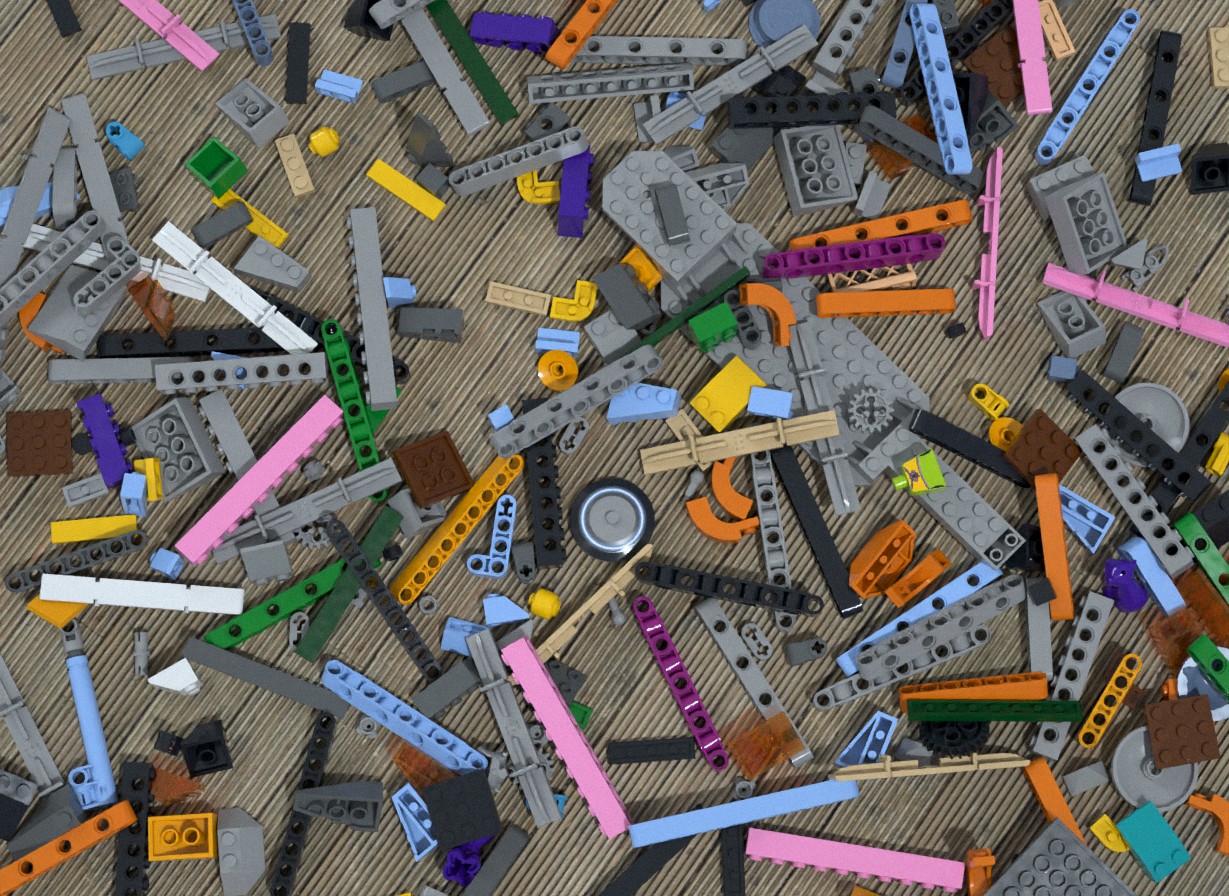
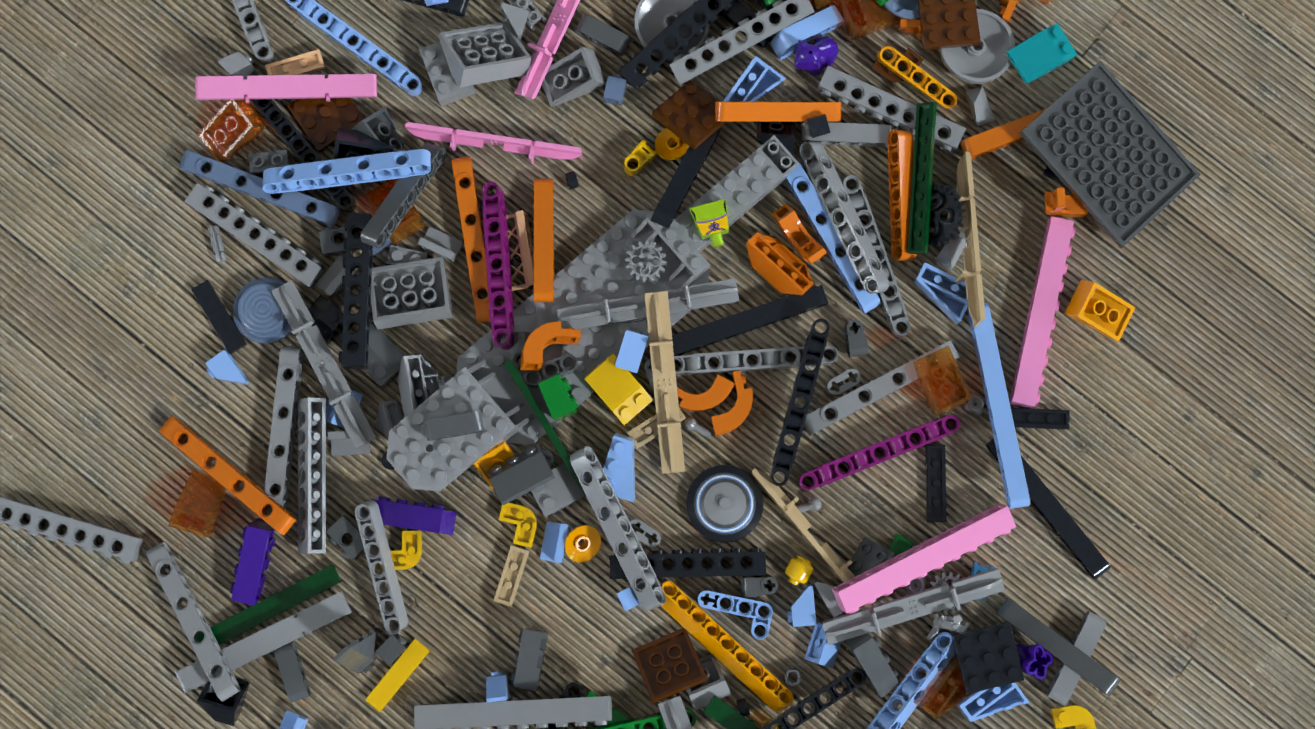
camera: 80 degrees left, 5 degrees up
(1108, 834) = (1029, 92): yellow plate -> none

